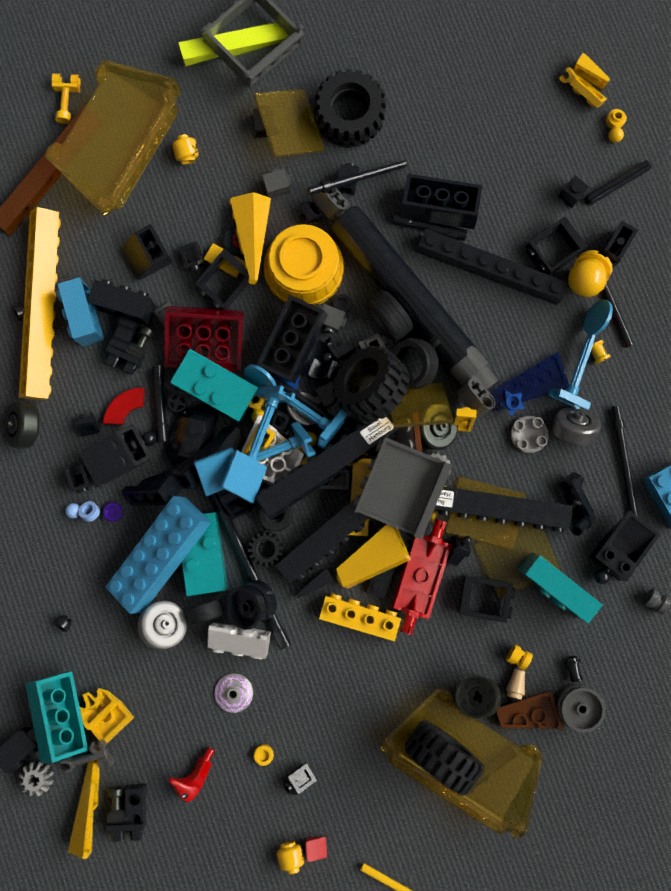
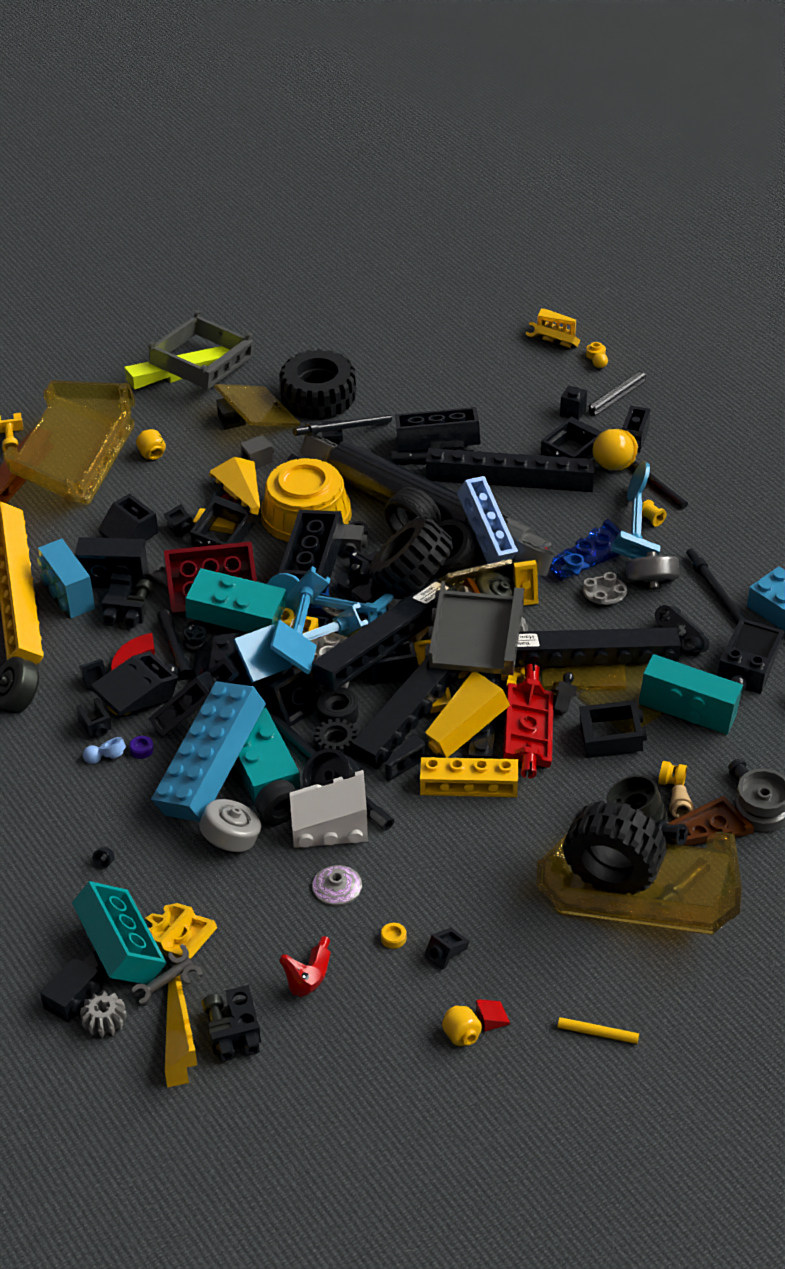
camera: 10 degrees left, 40 degrees down
(447, 359) = (486, 520): none -> light blue brick
(497, 726) = (673, 833): none -> black bush

